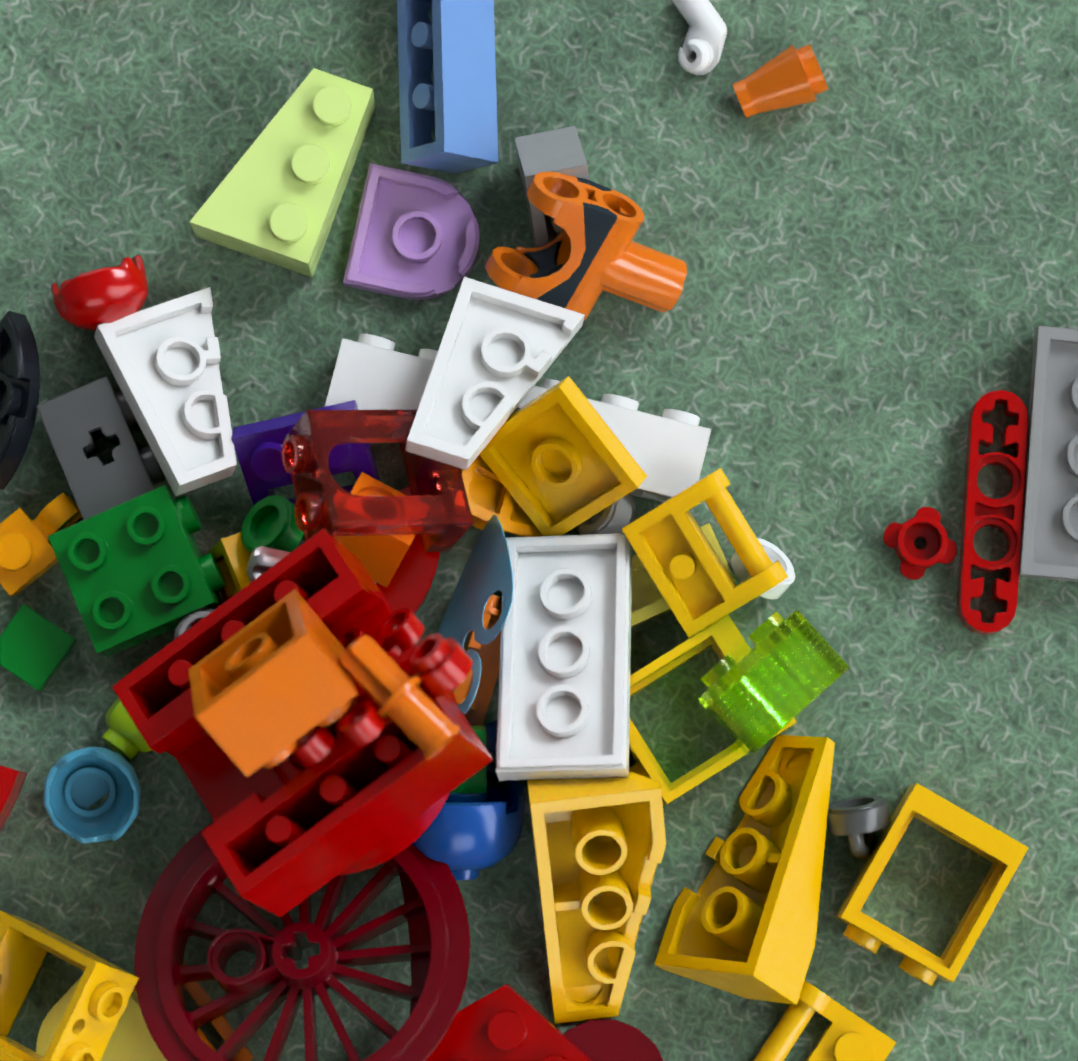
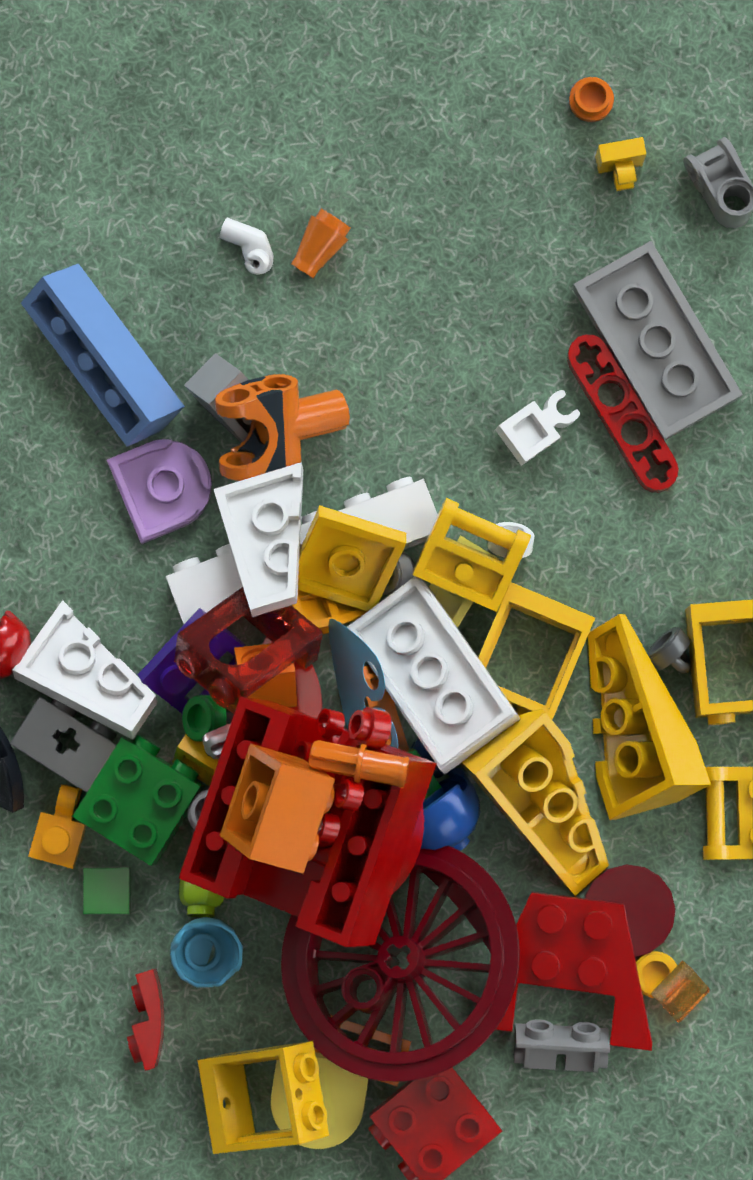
camera: 30 degrees left, 0 degrees up
(292, 176) = (67, 500): yellowish green wedge -> none
(772, 681) = (564, 603): clear neon green brick -> none
(876, 460) = (533, 430): none -> white plate
(927, 526) = (587, 449): red plate -> none

